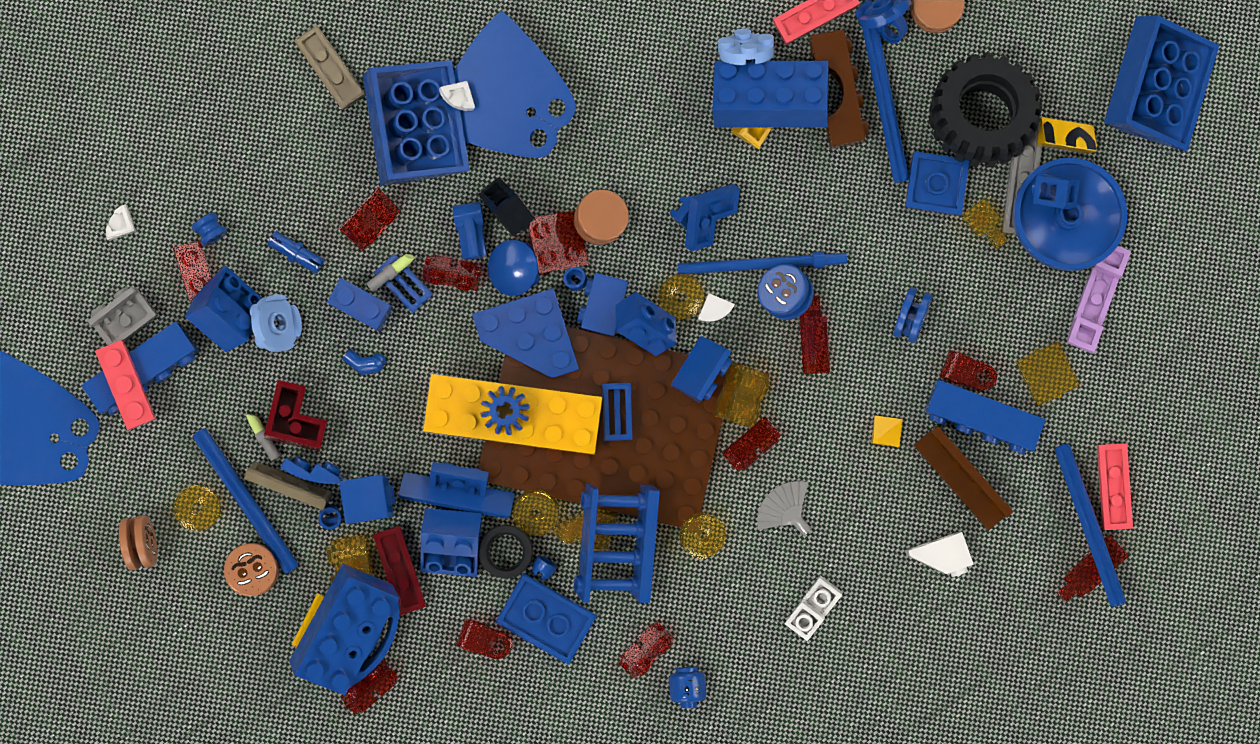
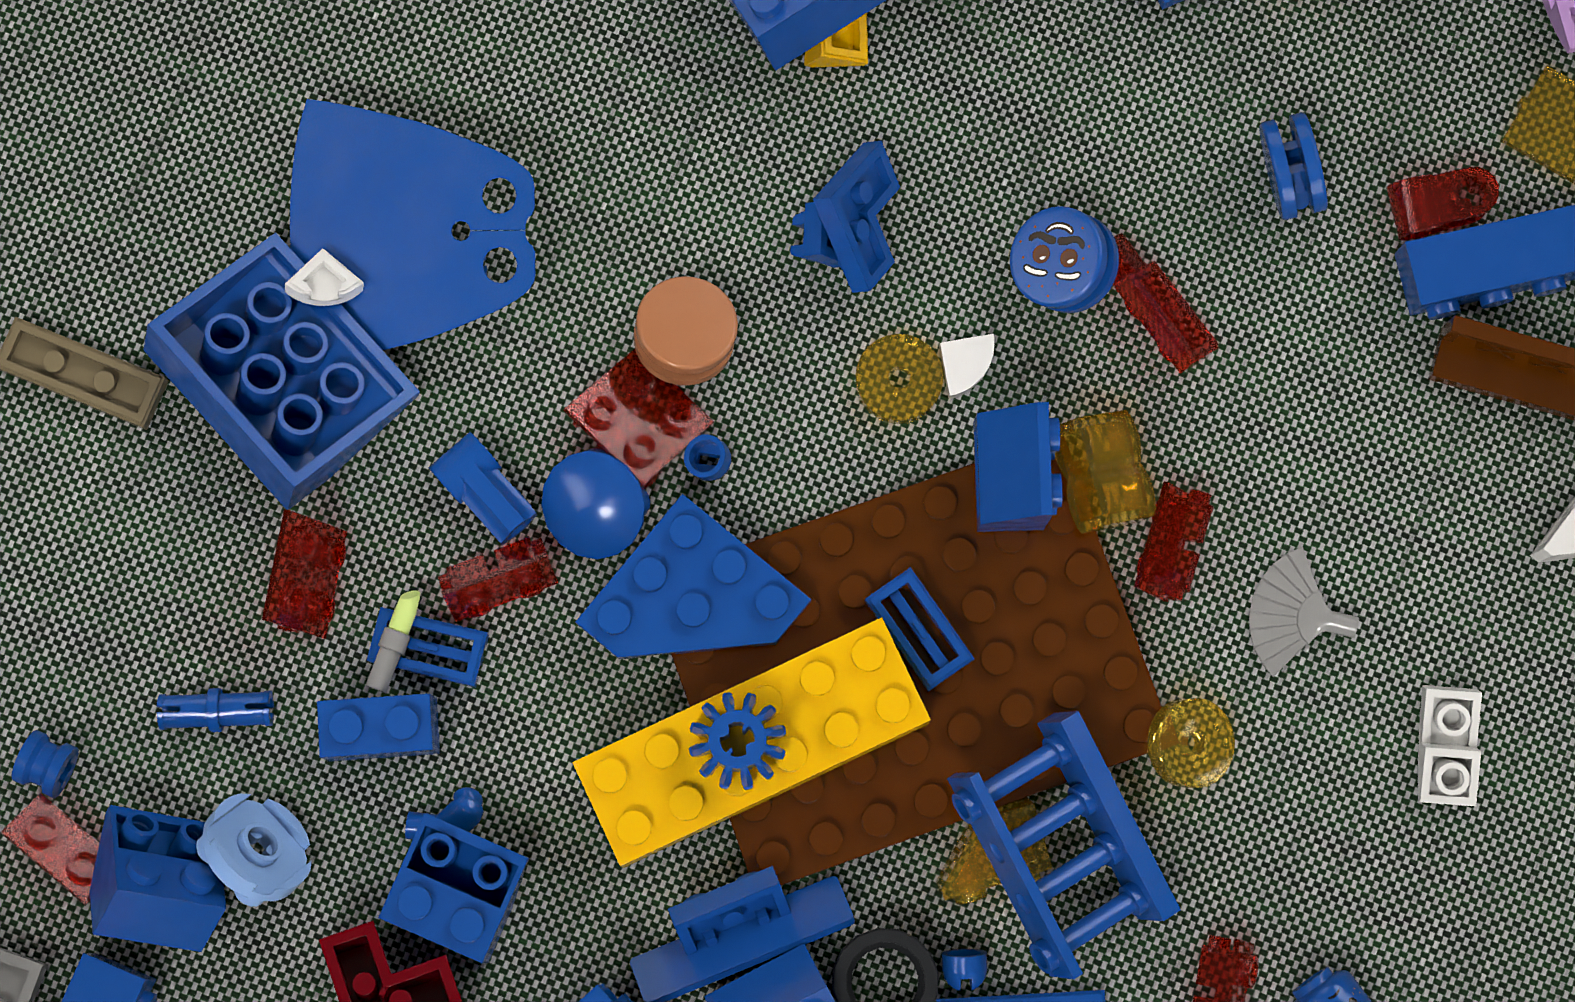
camera: 30 degrees left, 5 degrees down
(348, 395) = (455, 889): none -> blue slope
(506, 207) = (520, 409): black brick -> none
(539, 500) = (899, 906): clear yellow piece -> none
(600, 312) = (781, 470): blue brick -> none
(645, 324) = (873, 454): blue brick -> none
(817, 260) = (1077, 180): blue bar -> none
(886, 431) = (1372, 382): yellow slope -> none

